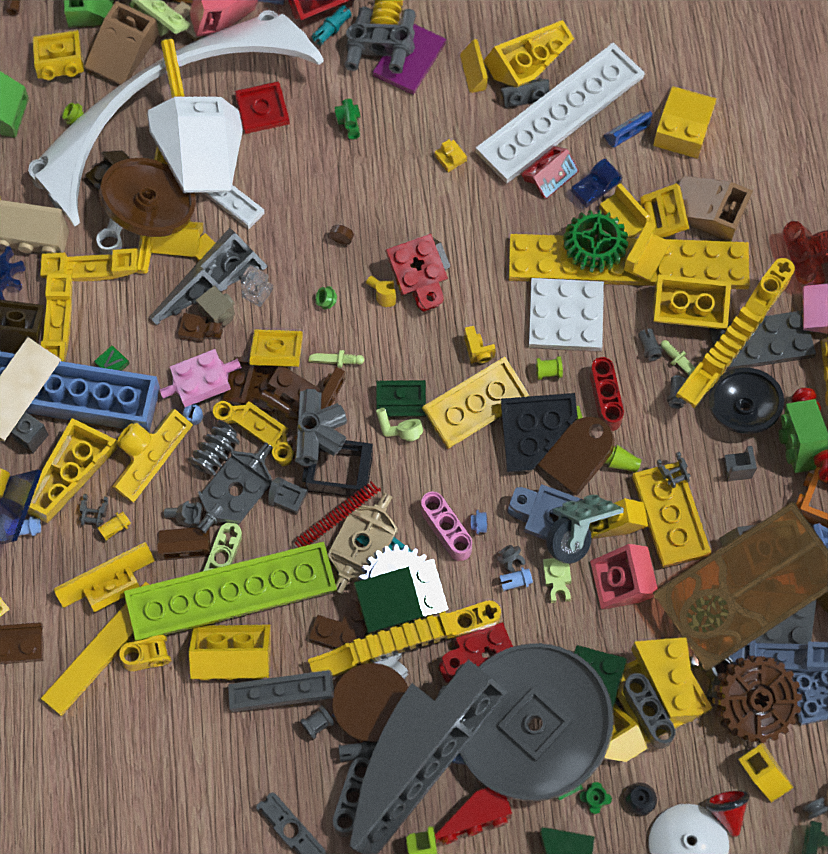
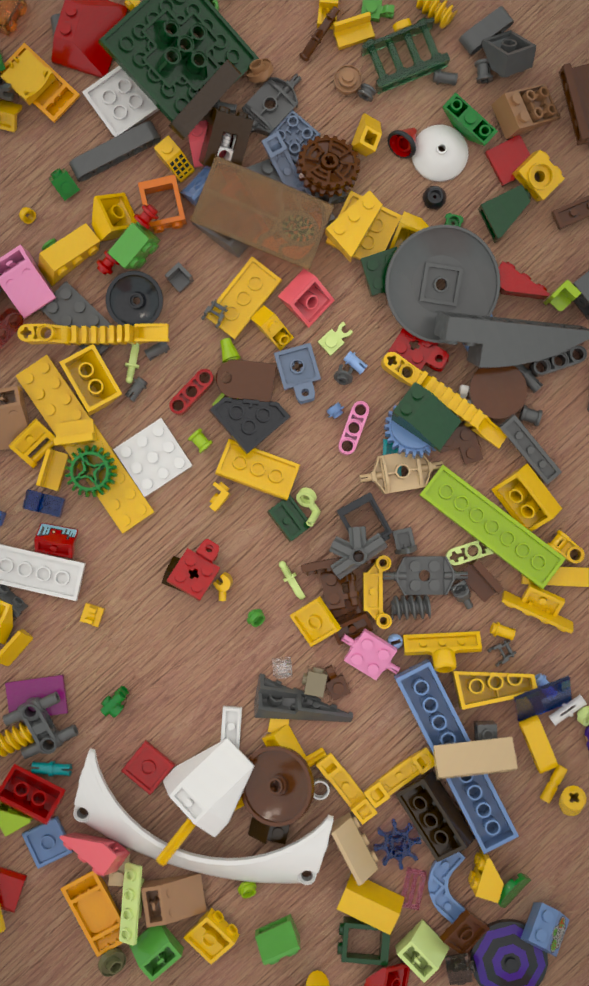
camera: 135 degrees left, 20 degrees up
(112, 360) = (399, 719): green tile -> none
(341, 234) = (204, 641): reddish brown tile -> none
(364, 498) = (397, 496): red piece -> none
(570, 535) = (296, 346): plate -> none
(649, 723) = (384, 214): dark grey beam -> none

